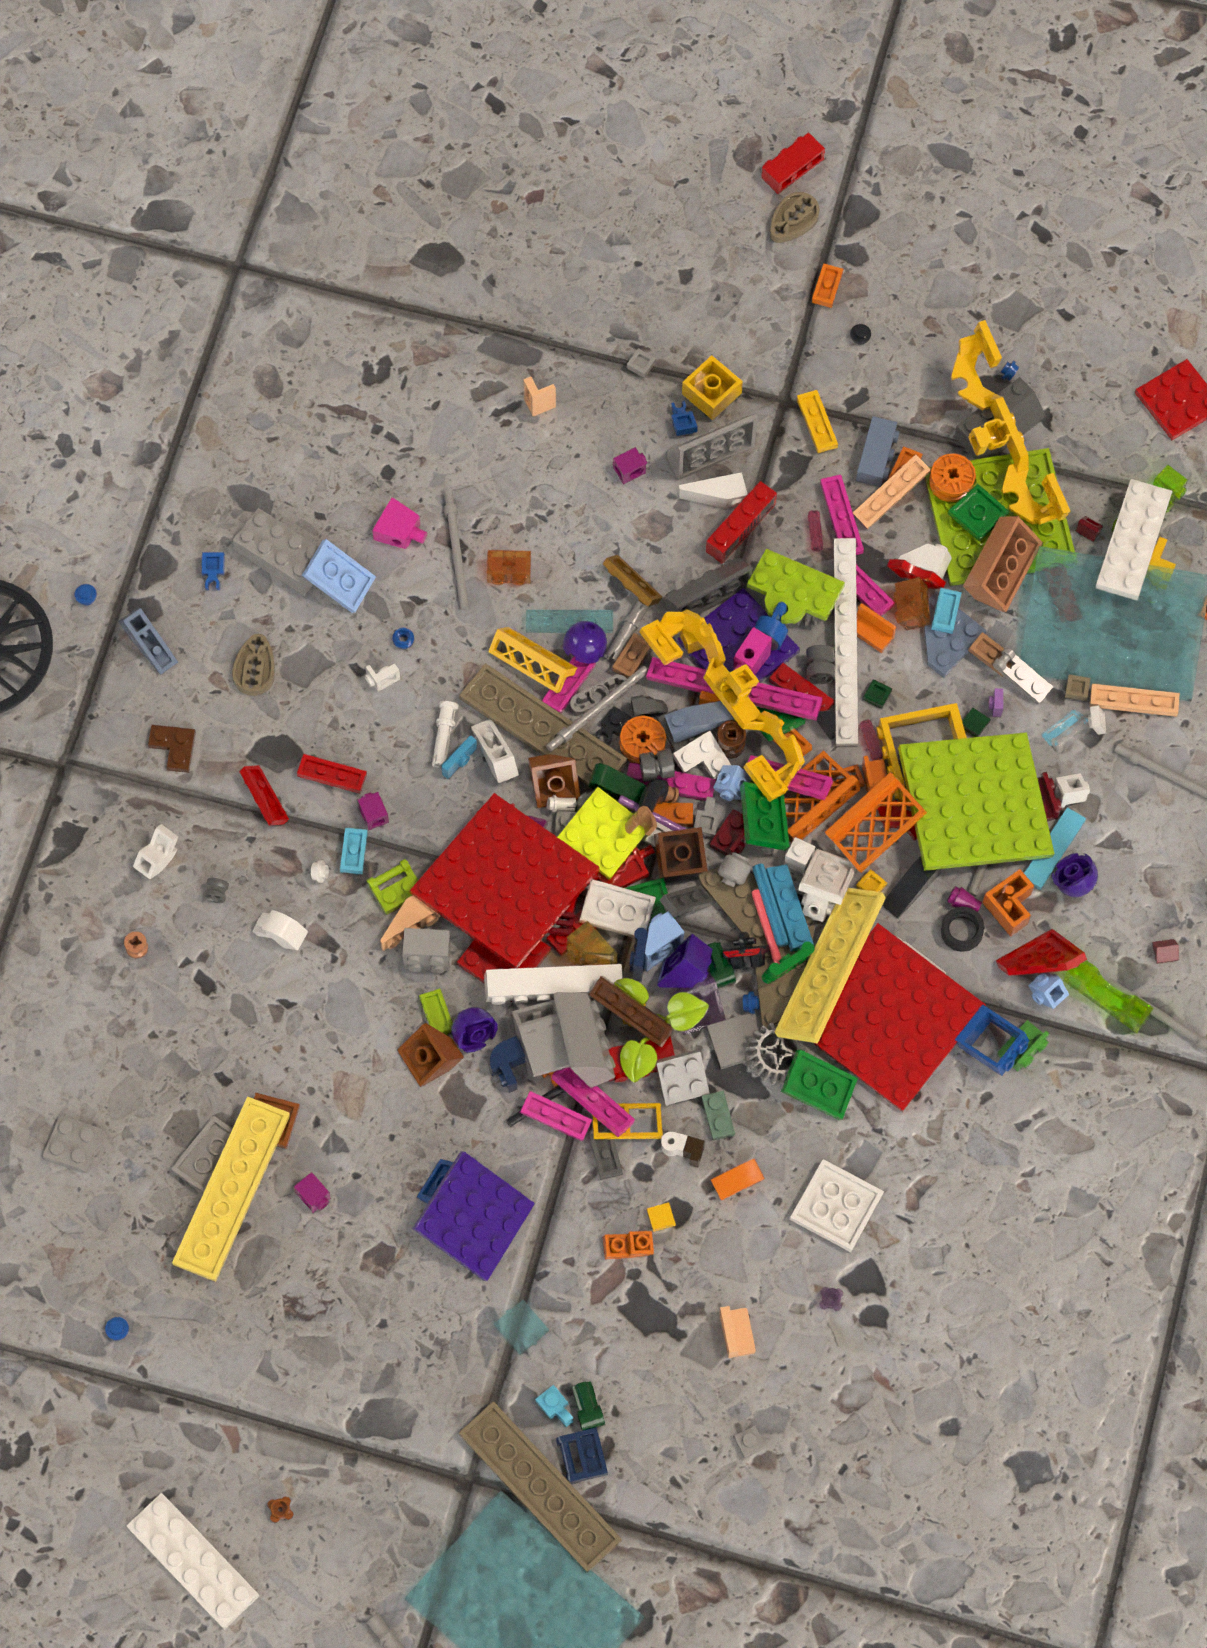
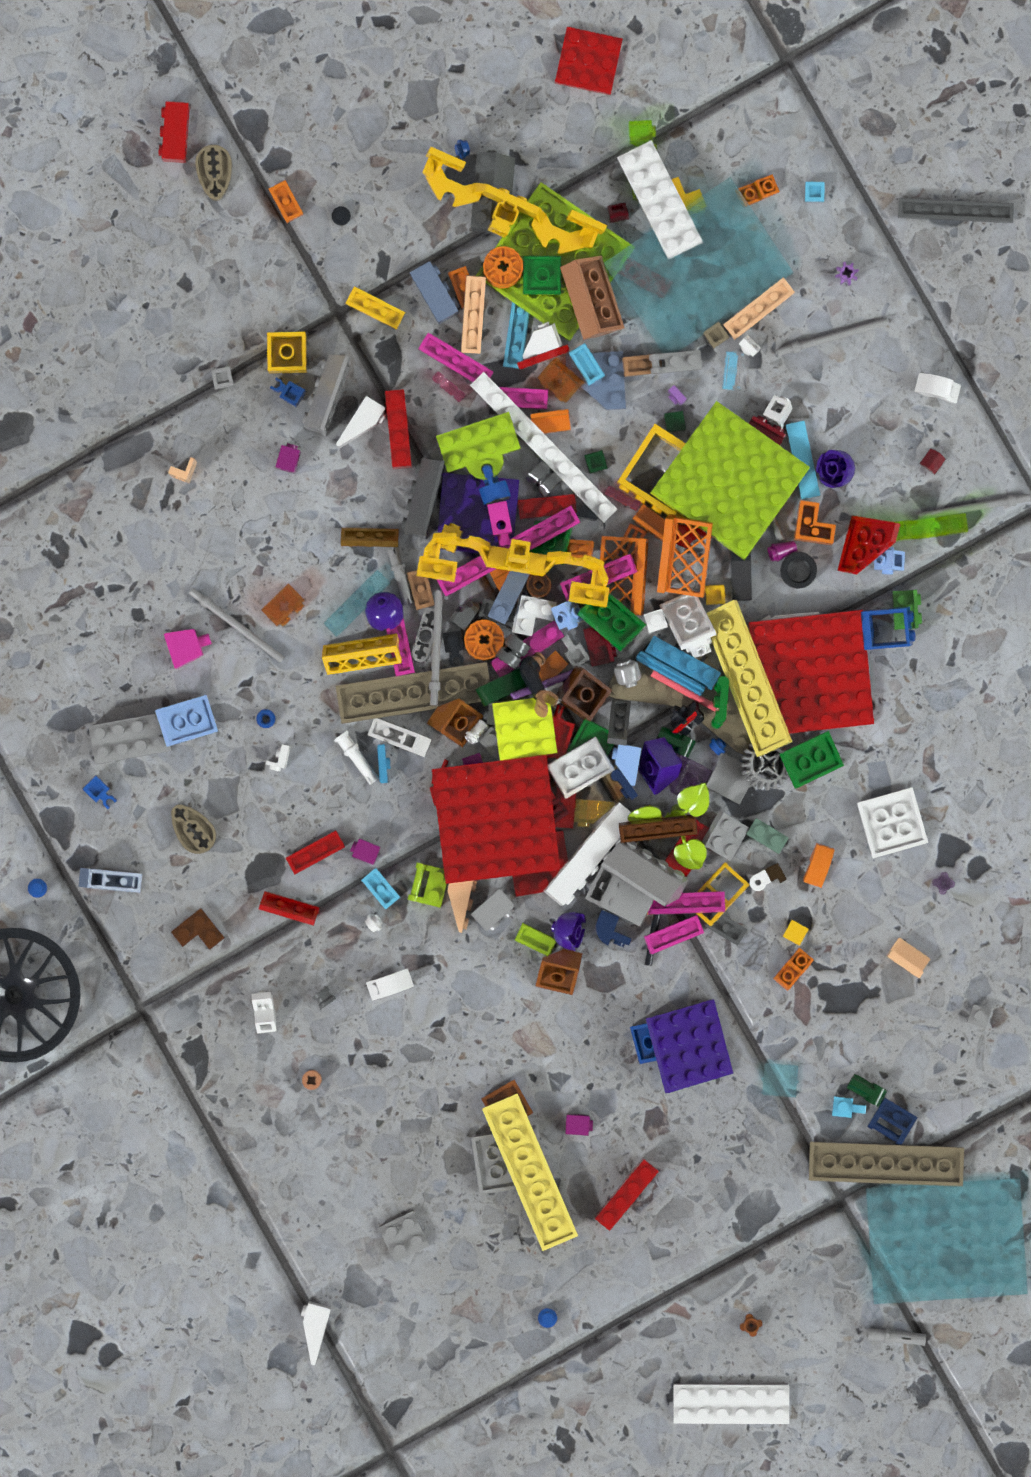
camera: 45 degrees left, 20 degrees up
(292, 1289) = (626, 1194): none -> red brick
(921, 535) = (516, 337): none -> medium azure tile

